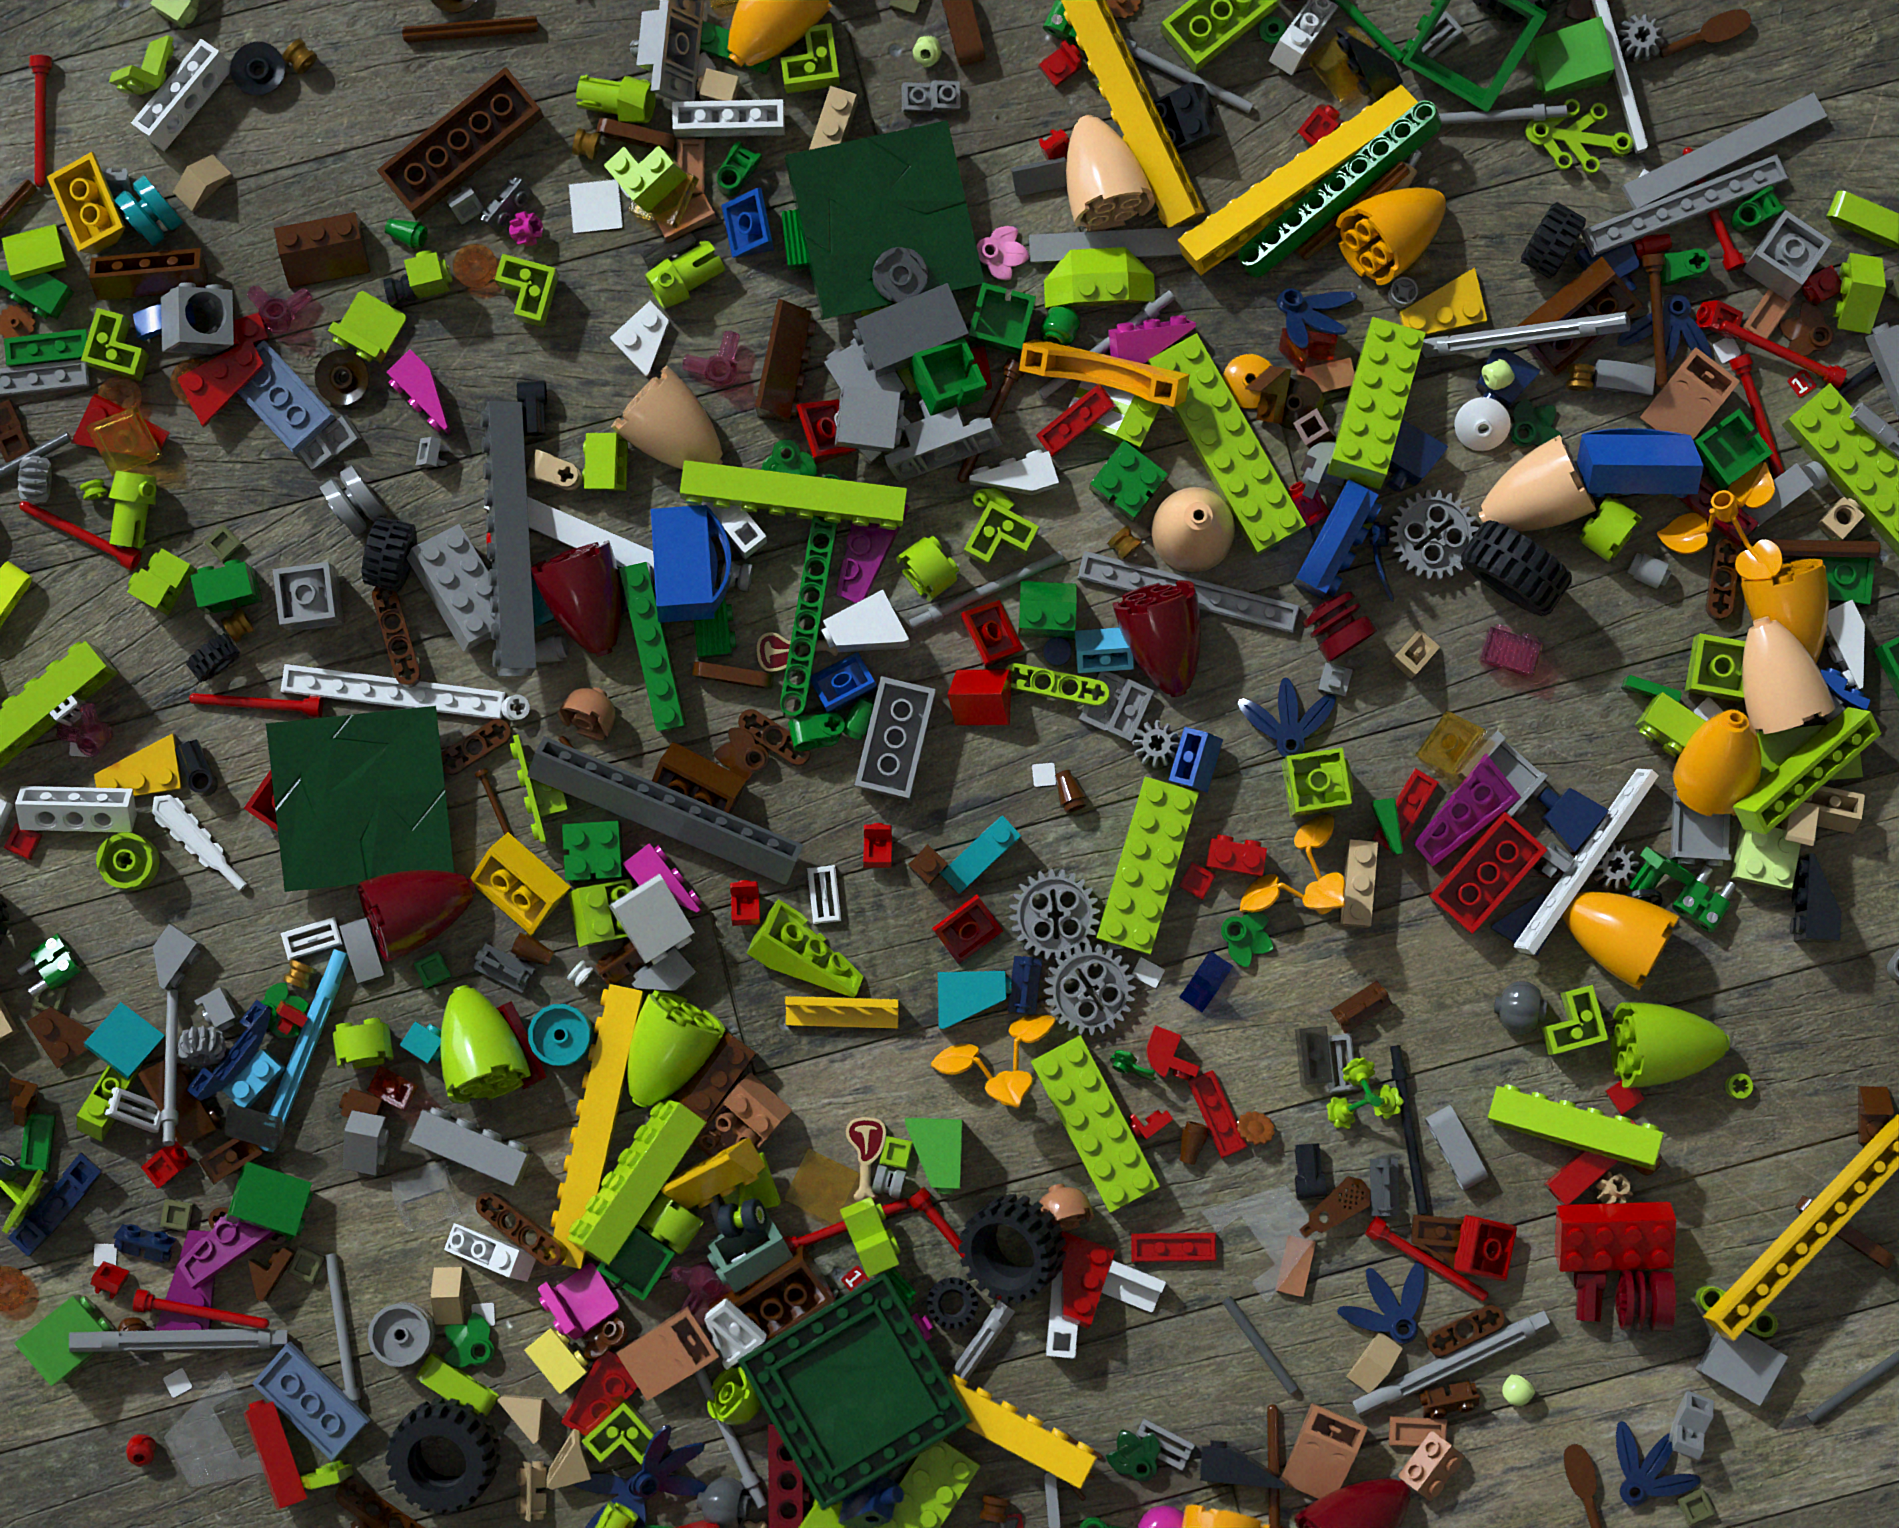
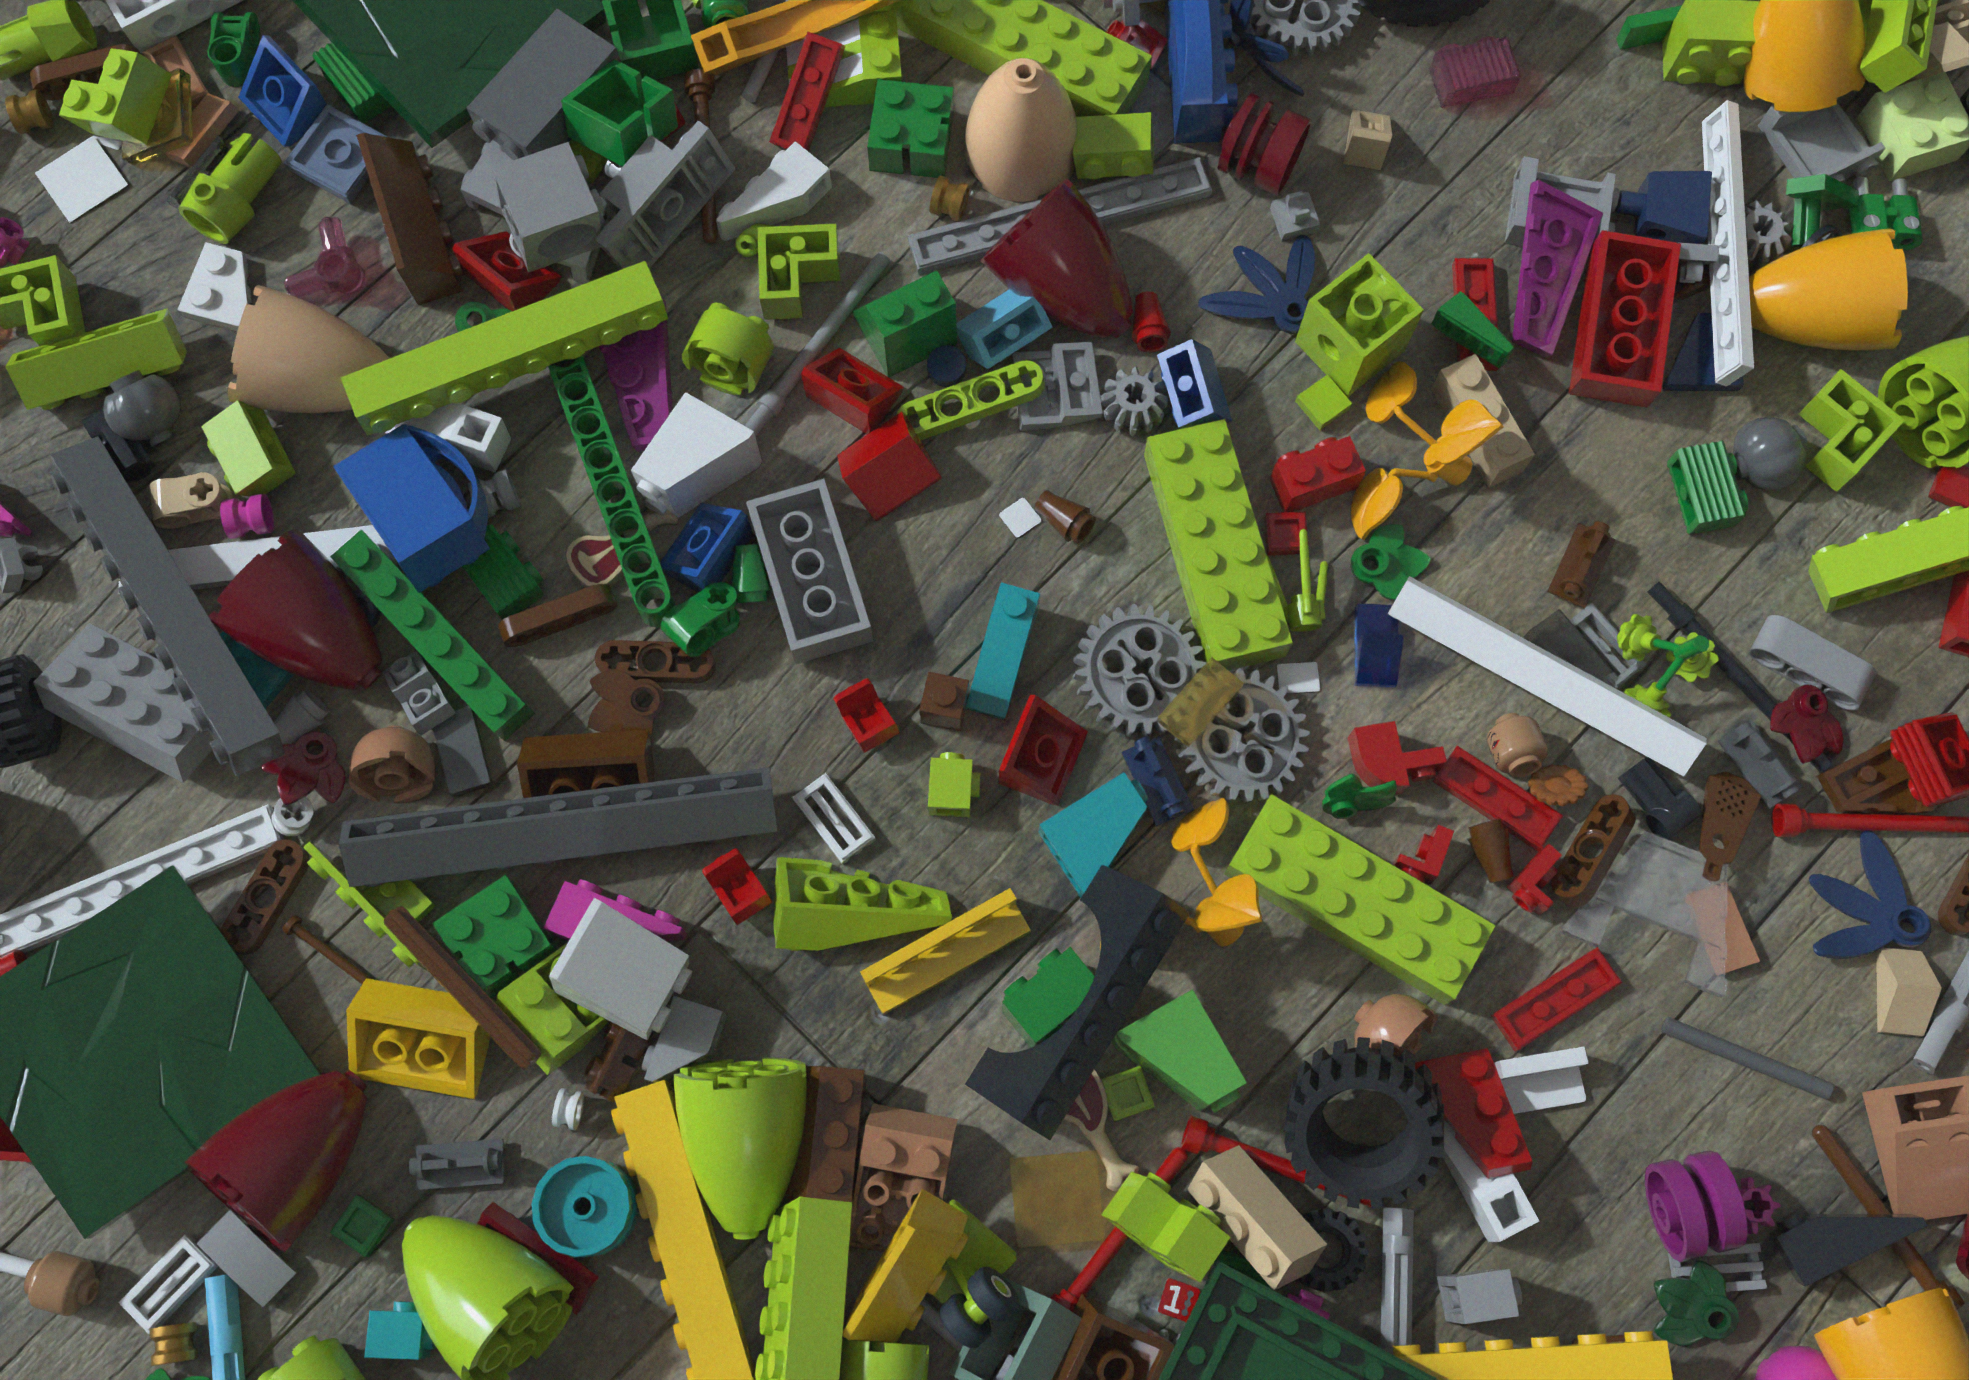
camera: 35 degrees left, 10 degrees down
(256, 905) = (61, 1283): none -> medium nougat head
(396, 635) = (79, 816): reddish brown beam -> none
(530, 949) = (483, 1116): reddish brown cone -> none
(538, 689) = (304, 772): none -> dark red plate
(546, 347) = (96, 359): none -> lime brick
(558, 396) = (142, 408): none -> dark grey plant
(559, 872) = (462, 988): none -> reddish brown axle
(583, 503) = (243, 517): none -> dark pink wheel
(626, 675) = (418, 692): none -> light grey slope
(632, 725) = (462, 753): none -> dark grey tile
(762, 284) = (332, 155): none -> sand blue plate
(850, 1119) = (1045, 1080): none -> black arch
(882, 1179) = (1132, 1140): light grey wheel -> none
(883, 1075) = (1048, 998): none -> green piece
(899, 274) = (491, 37): dark grey tile -> none
(903, 917) = (952, 785): none -> lime brick
(922, 1262) = (1257, 1217): none -> tan brick
(1018, 1377) = (1479, 1295): none -> light grey brick
(1073, 957) = (1200, 702): none -> clear yellow tile
(1163, 1401) = (1696, 1205): none -> magenta wheel
(1175, 935) = (1304, 611): none -> lime plant
(1198, 698) = (1149, 323): none -> red cone
(1204, 1430) = (1763, 1204): none -> dark pink gear
(1209, 1170) = (1536, 872): none -> red bracket
(1246, 570) = (1114, 146): none -> lime brick
(1246, 1091) = (1517, 745): none -> medium nougat head
(1264, 1162) = (1596, 868): none -> reddish brown beam
(1273, 812) = (1323, 402): none -> lime tile
(1288, 1061) = (1547, 676): none -> white tile
(1425, 1184) = (1808, 722): none -> dark red plate
(1450, 744) = (1480, 208): clear yellow slope -> none
(1468, 1006) = (1707, 487): none -> green brick

